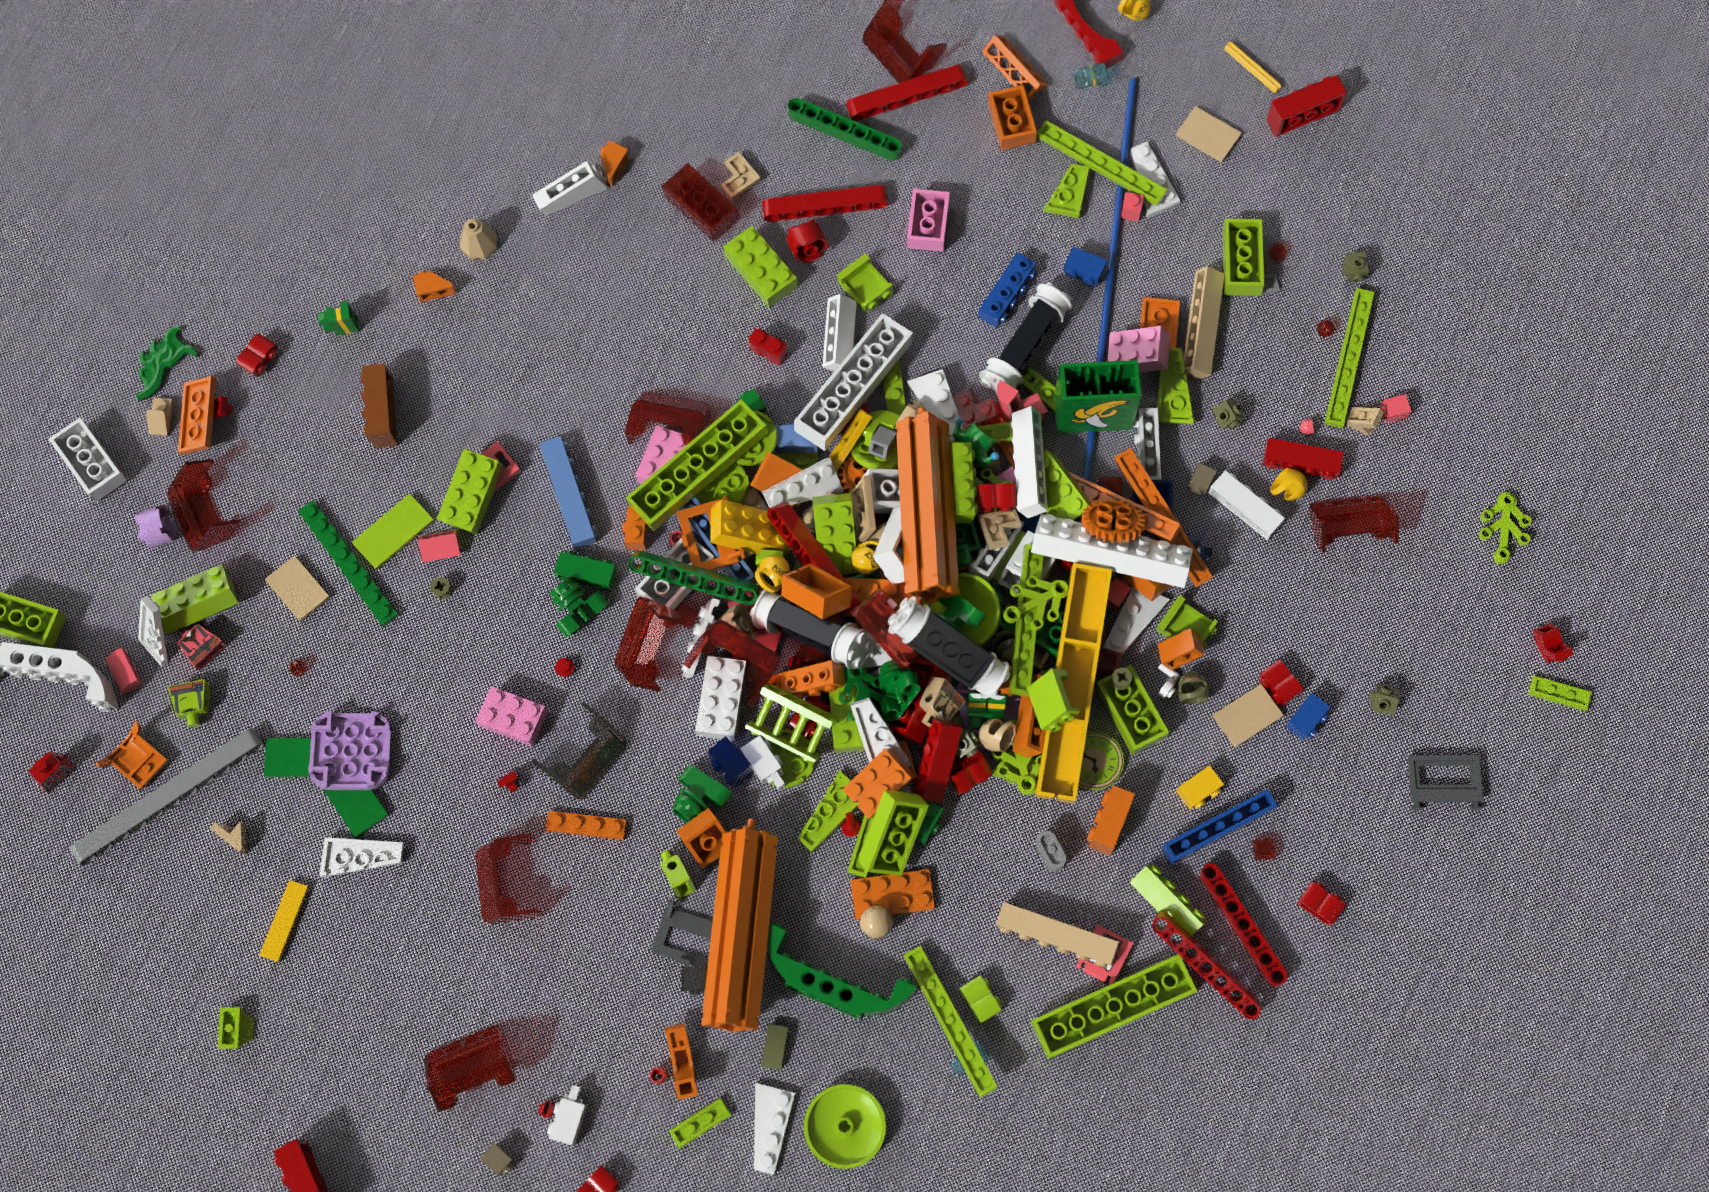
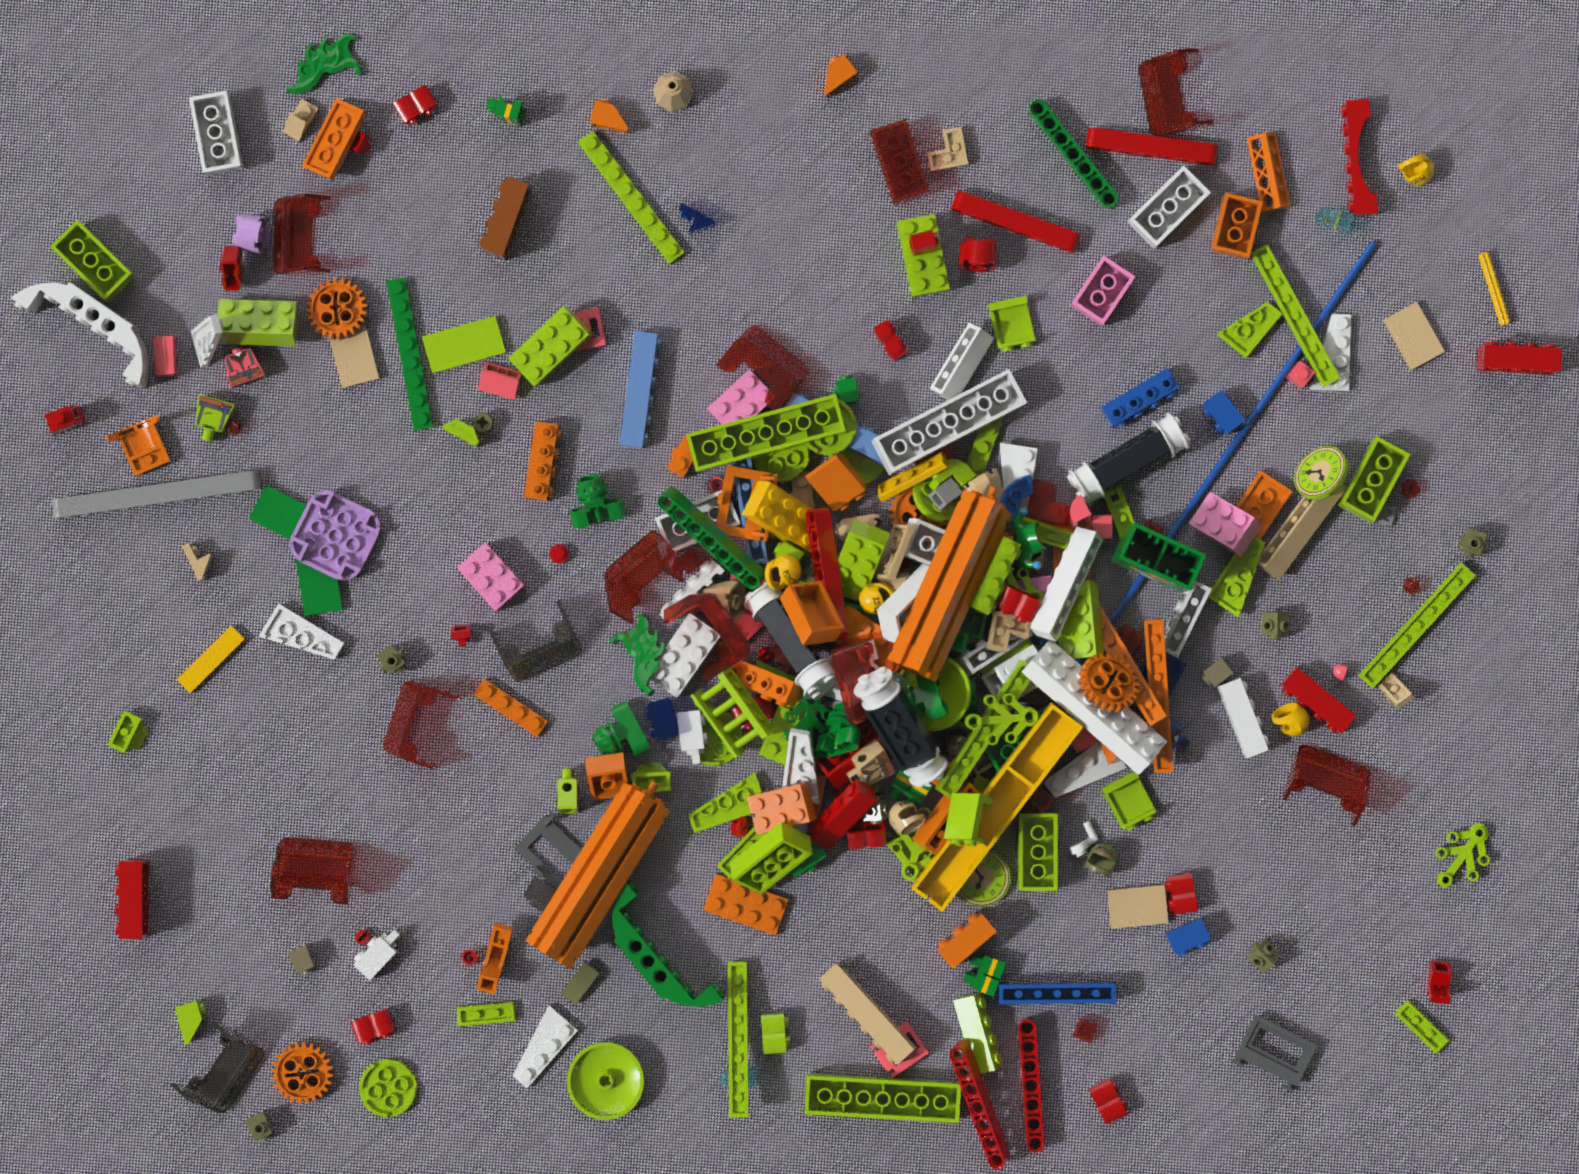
camera: 20 degrees right, 15 degrees up
(151, 564) = (231, 268): none -> red brick
(214, 702) = (233, 427): none -> clear red plate
(247, 564) = (353, 306): none -> orange gear
(294, 670) = (321, 432): clear red hinge -> none
(425, 603) = (463, 431): none -> lime slope
(454, 835) = (386, 656): none -> olive brick
(483, 341) = (631, 197): none -> lime plate
(509, 594) = (542, 460): none -> orange brick
(552, 329) = (700, 222): none -> clear blue slope
(570, 188) = (783, 84): white slope -> none
(585, 570) = (620, 472): green brick -> none
(683, 709) = (645, 650): none -> green piece
(741, 819) = (652, 772): none -> lime slope
(753, 245) = (923, 242): none -> red brick
(804, 485) = (854, 499): white wing -> none
(876, 922) = (718, 923): tan helmet -> none
(944, 409) = (1016, 492): none -> blue tile
(947, 129) = (1168, 207): none -> white brick
(1050, 851) = (900, 939): light grey brick -> none
(1123, 681) = (1038, 823): olive wheel -> none
(1147, 842) = (986, 965): none -> green hips
(1180, 649) = (1109, 820): orange brick -> none
(1195, 270) = (1321, 472): none -> tile
(1199, 788) = (1059, 949): yellow brick -> none
(1395, 408) = (1429, 696): coral brick -> none

